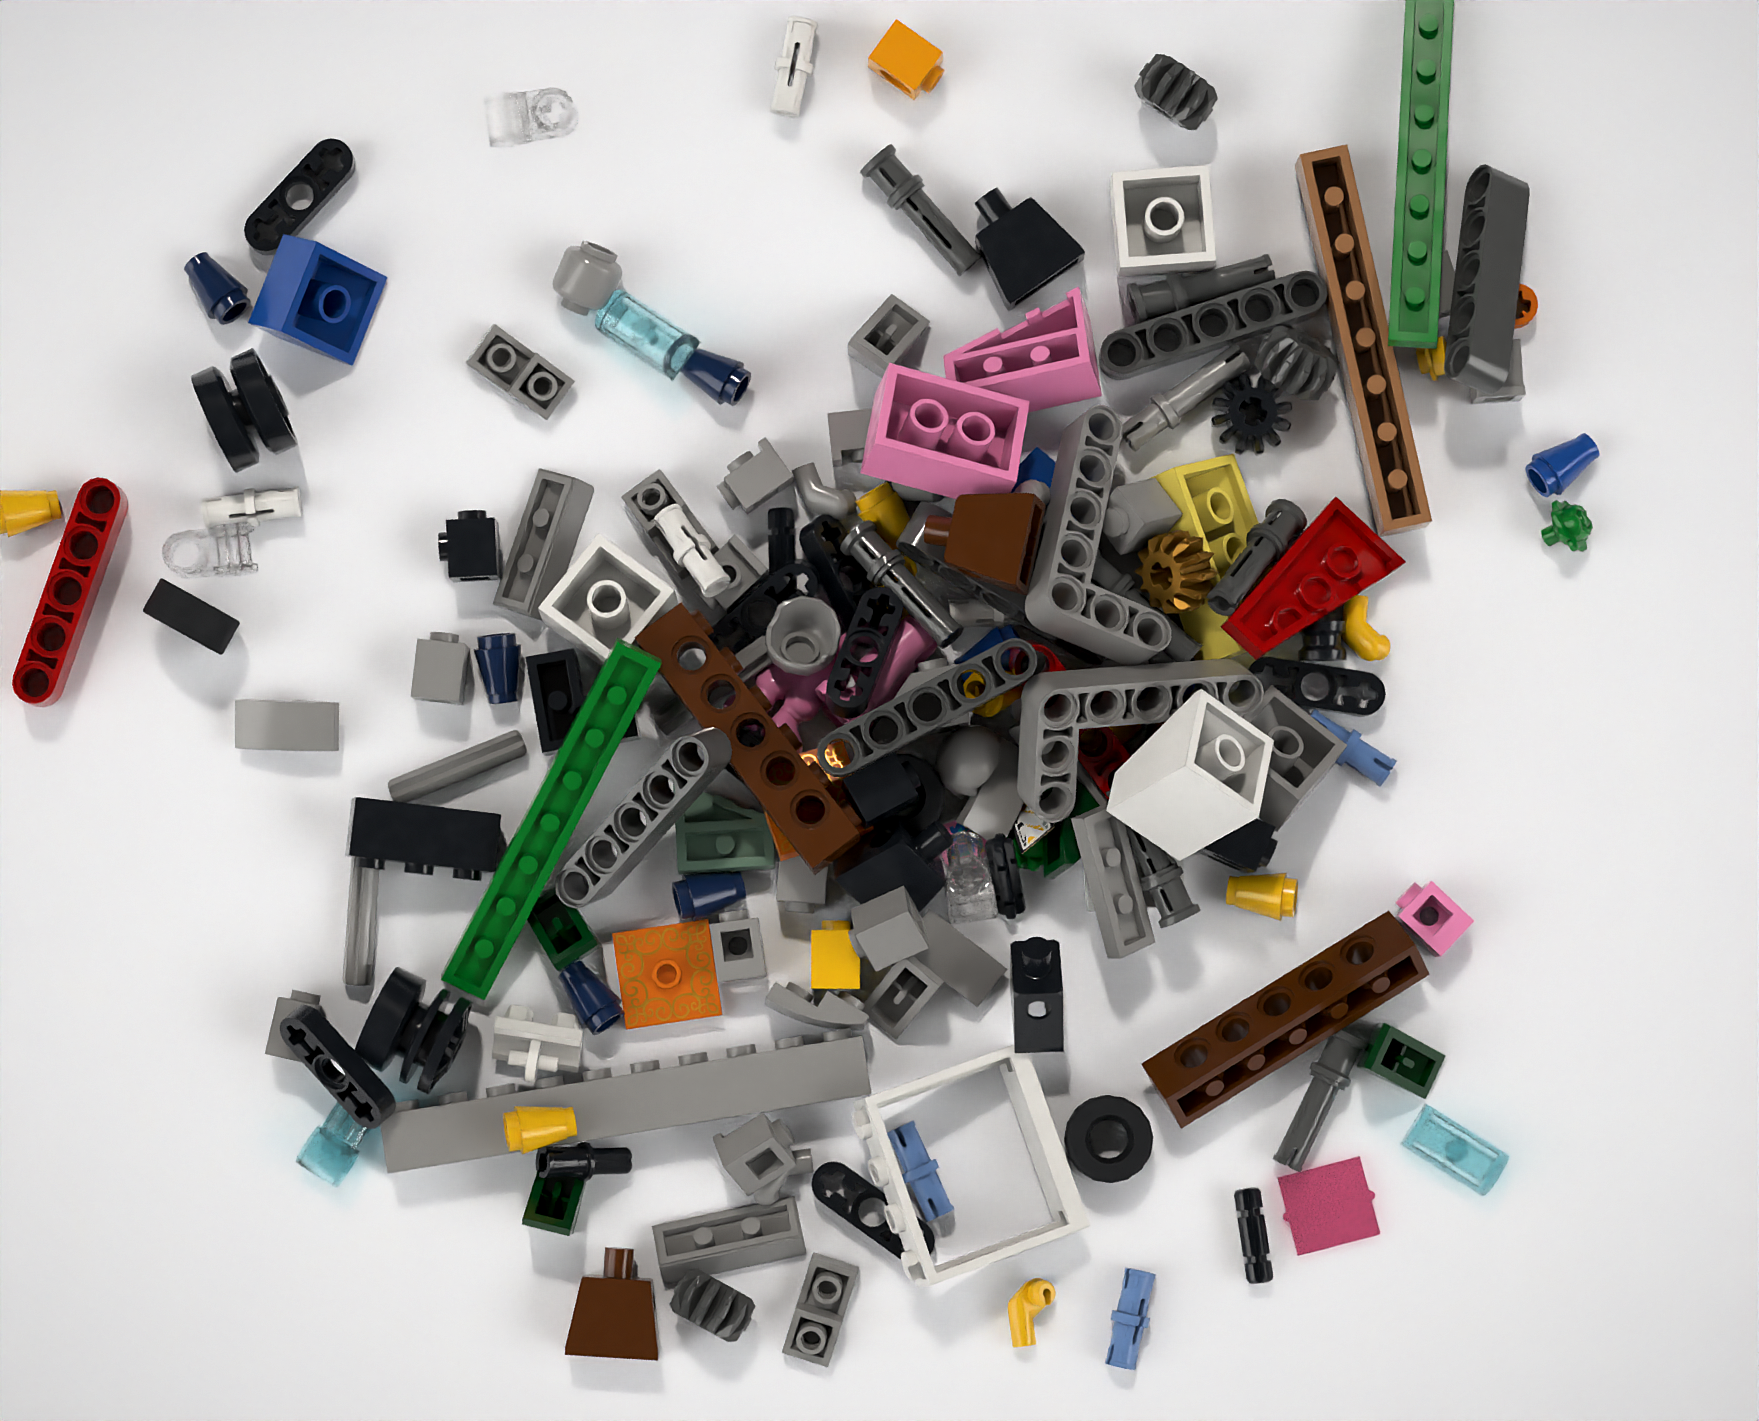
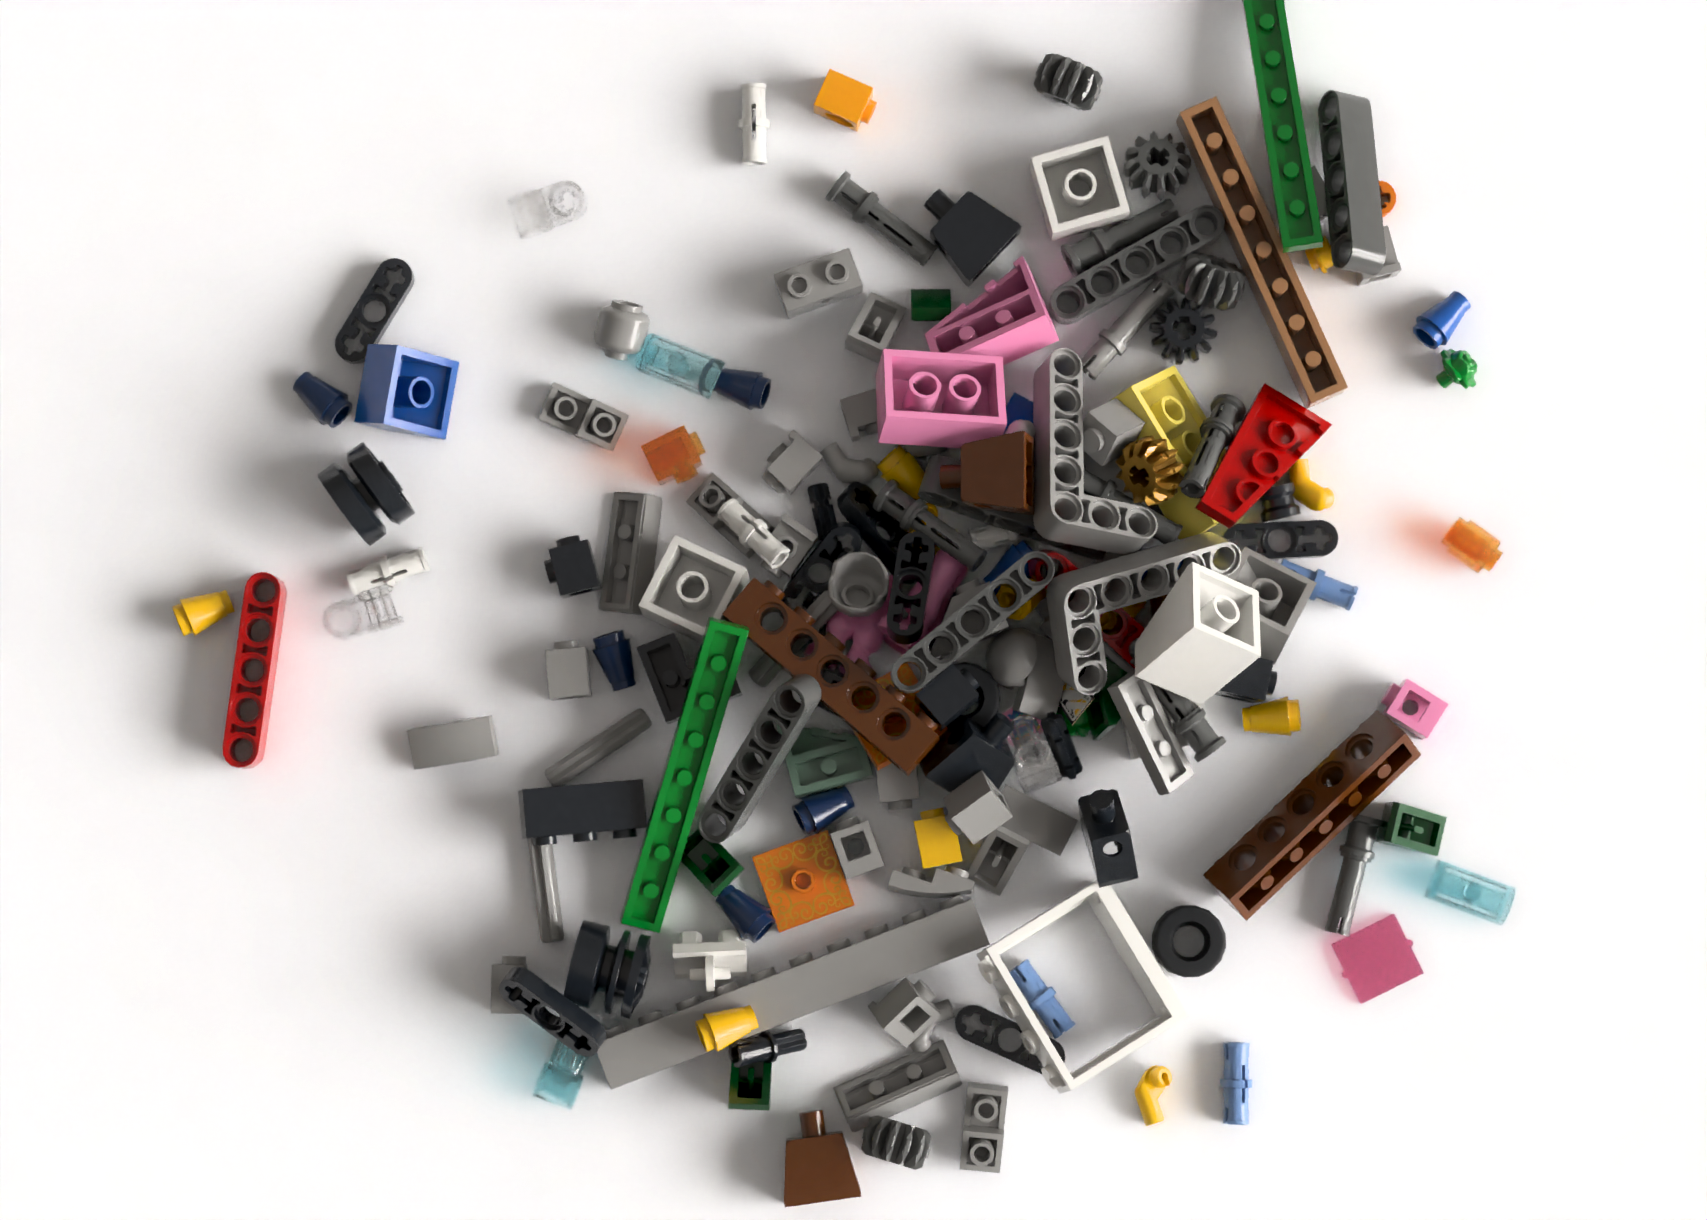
camera: 10 degrees left, 0 degrees up
(191, 616) = (357, 670): black tyre -> none
(618, 440) = (674, 456): none -> clear orange brick
(831, 270) = (818, 283): none -> light grey brick
(958, 322) = (930, 304): none -> dark green tile
(1253, 1235) = (1321, 995): black axle -> none
(1261, 212) = (1157, 165): none -> dark grey gear
(1542, 739) = (1472, 545): none -> clear orange brick

